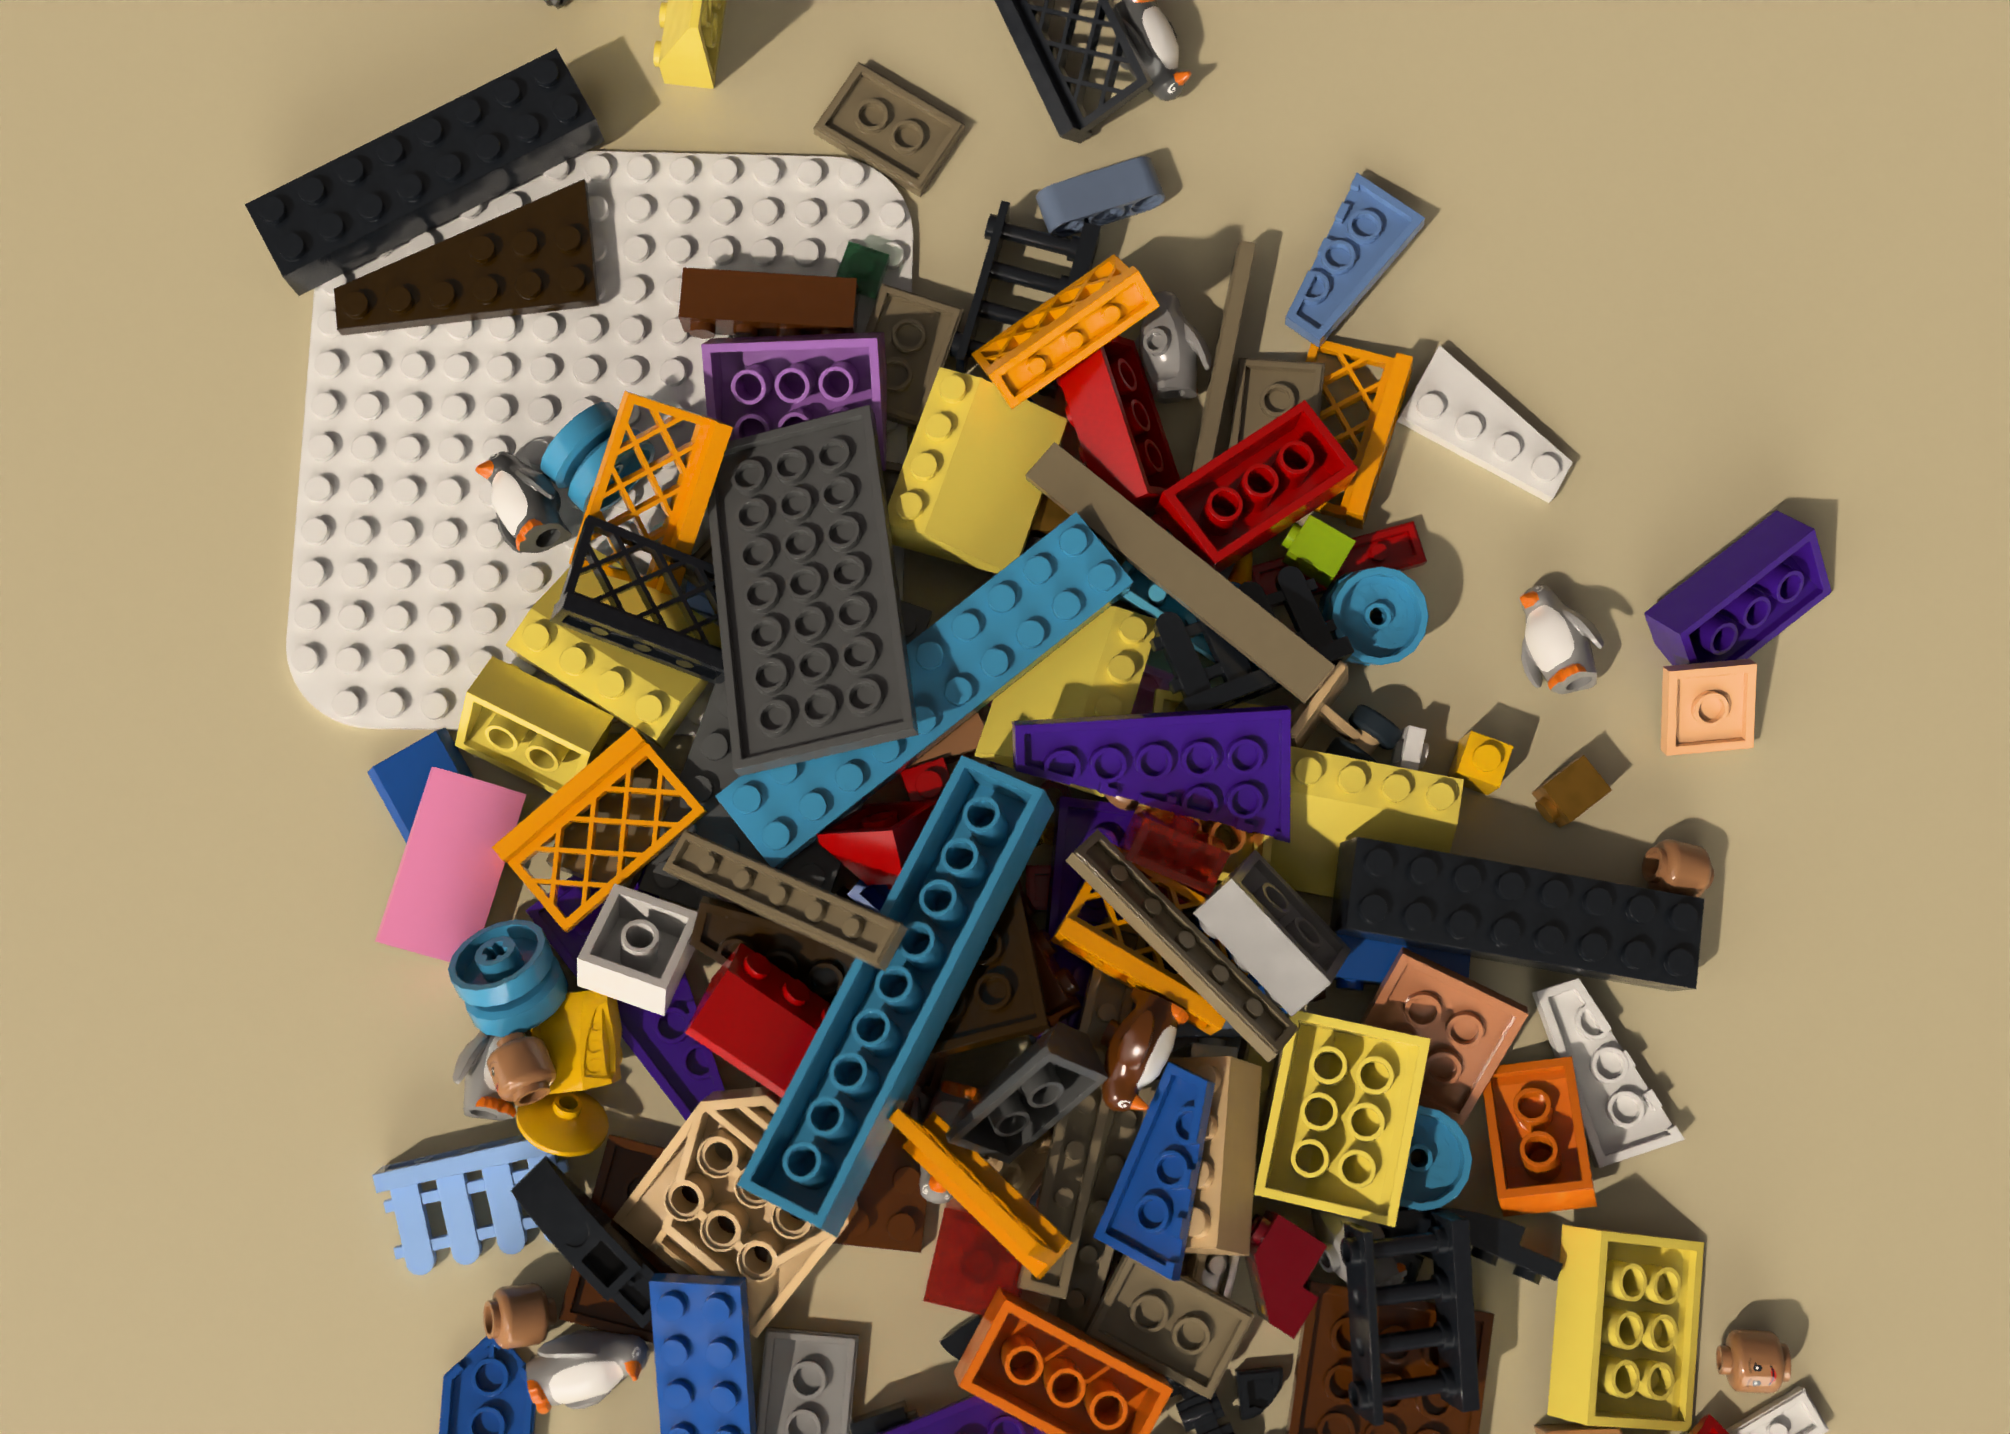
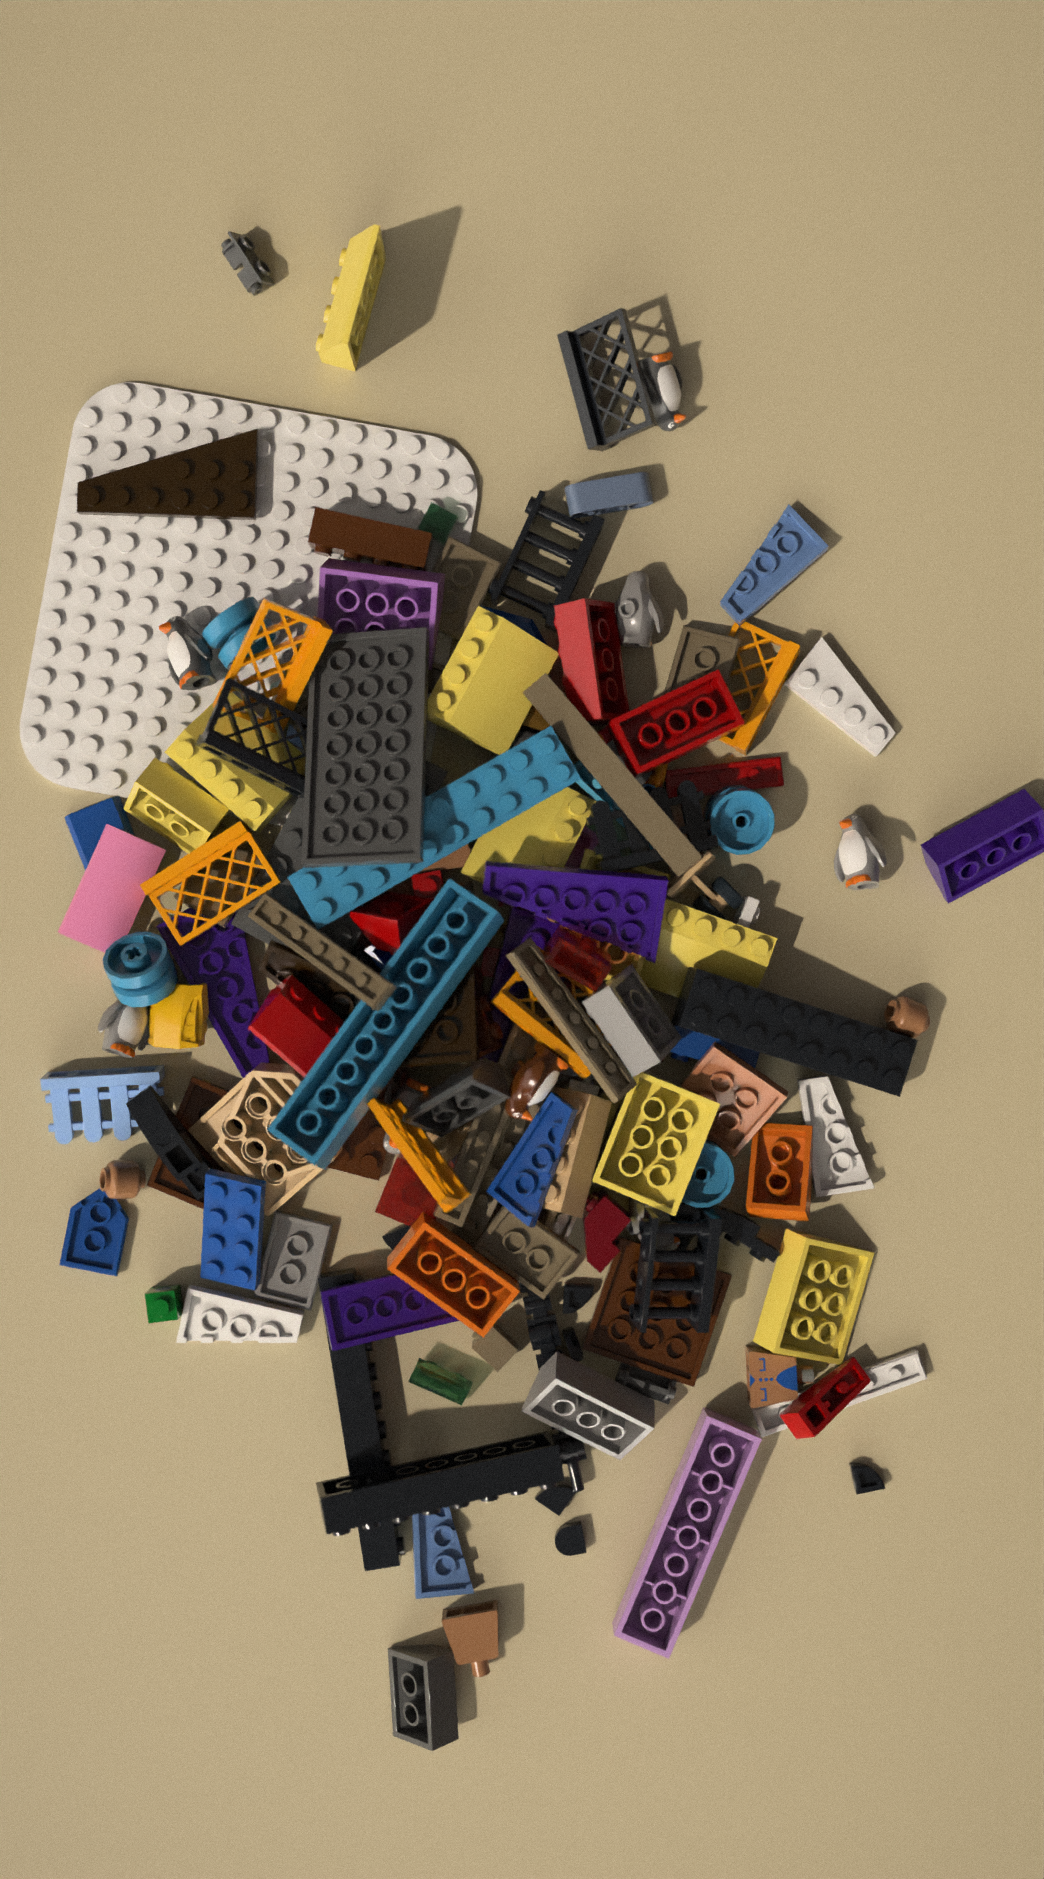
camera: 10 degrees right, 10 degrees up
(425, 172) = (149, 408): black brick -> none
(521, 1069) = (142, 1029): medium nougat head -> none
(564, 1123) = (163, 1066): yellow dish -> none
(583, 1368) = (158, 1217): animal -> none
(637, 949) = (225, 965): white brick -> none
(889, 129) = (472, 421): dark tan tile -> none
(1065, 330) = (563, 606): light orange fence -> none
(1223, 355) = (672, 625): dark tan tile -> none
(1317, 549) = (710, 768): lime brick -> none
(1480, 762) = (791, 927): yellow brick -> none
(1570, 792) = (847, 955): pearl gold brick -> none
(1708, 707) = (949, 914): light nougat plate -> none
(1754, 1361) = (888, 1330): medium nougat head -> none

